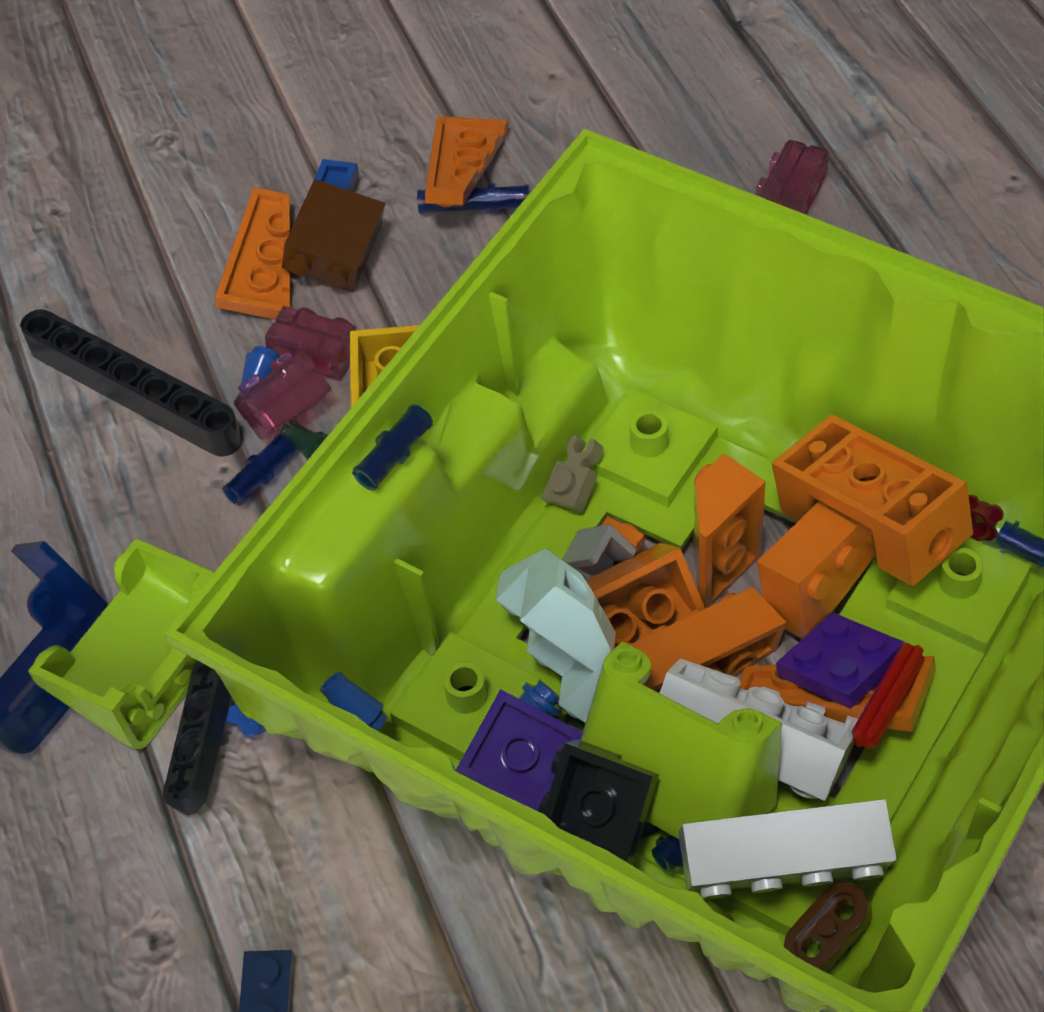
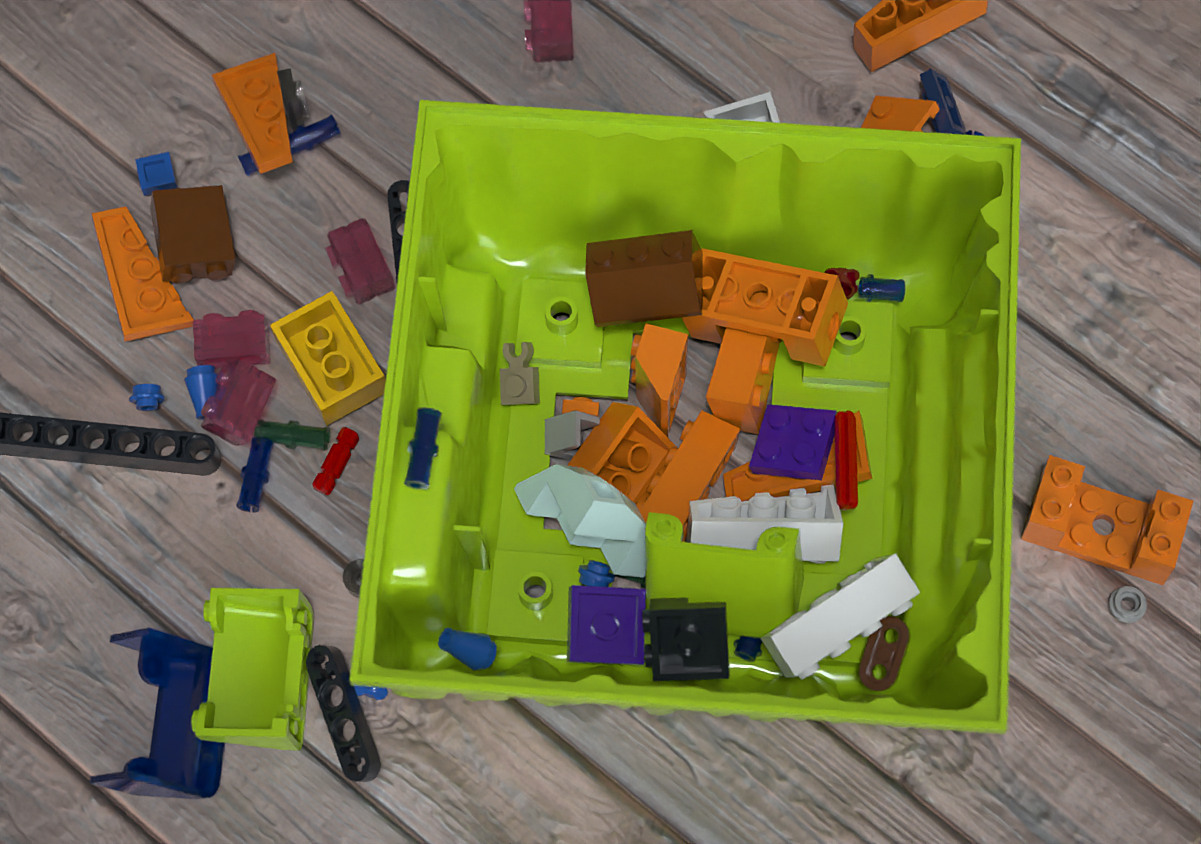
camera: 30 degrees left, 15 degrees up
(203, 361) = (146, 397): none -> blue plate
(494, 150) = (293, 98): none -> clear smoke plate
(752, 415) = (645, 278): none -> reddish brown slope

